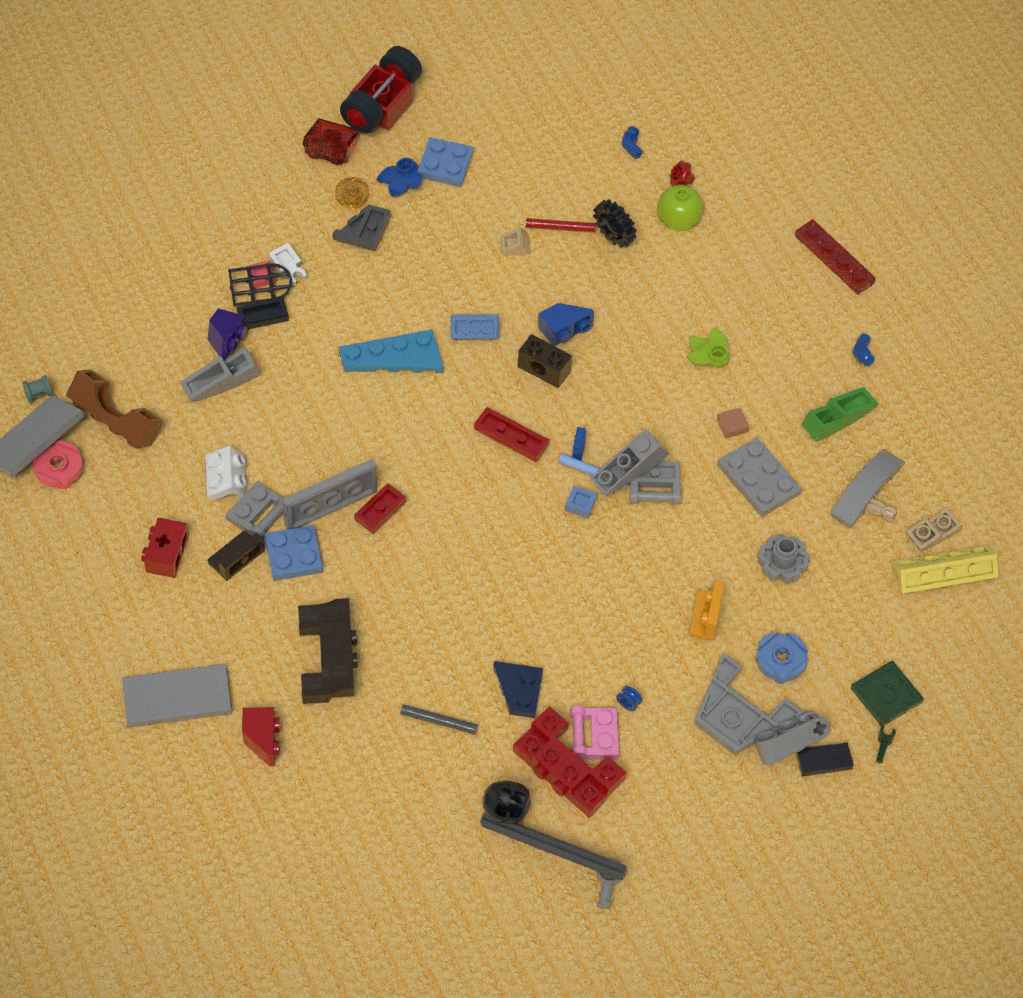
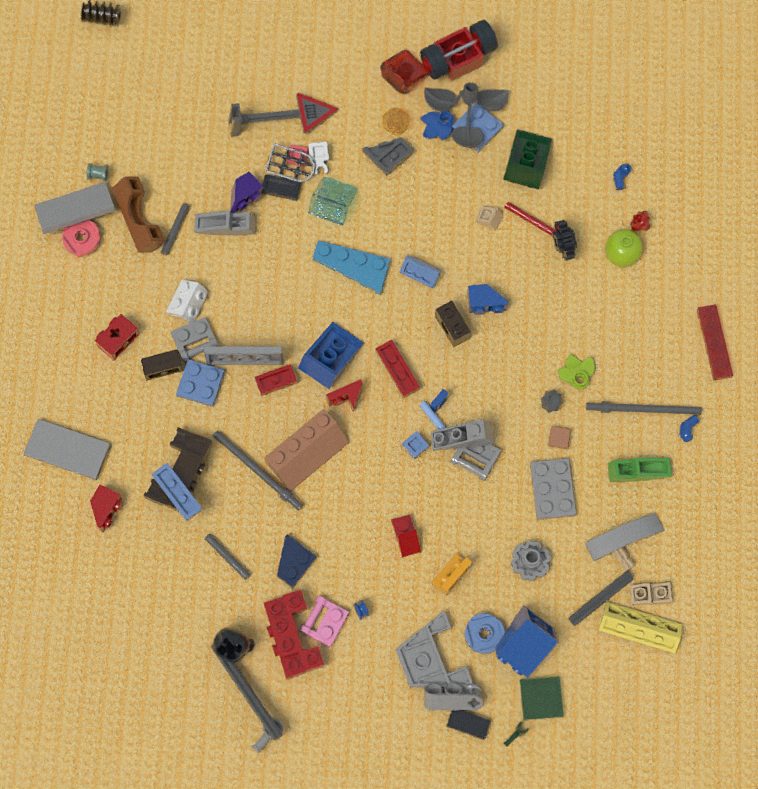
camera: 30 degrees right, 15 degrees up
(164, 408) = (175, 228): none -> dark grey bar
(249, 223) = (310, 111): none -> dark grey piece
(330, 301) = (332, 200): none -> clear light blue bracket
(343, 668) = (176, 492): none -> medium blue plate
(426, 455) = (330, 355): none -> blue slope
(444, 128) = (490, 99): none -> dark grey plant
(461, 563) = (306, 450): none -> nougat slope
(466, 621) = (285, 494): none -> dark grey bar
(471, 484) = (350, 392): none -> red slope
(522, 168) = (527, 159): none -> dark green slope
(630, 599) = (406, 536): none -> red slope
(701, 389) = (551, 401): none -> dark grey piece
(763, 369) = (605, 407): none -> dark grey bar
(836, 638) = (526, 642): none -> blue slope
(883, 560) = (600, 598): none -> dark grey axle

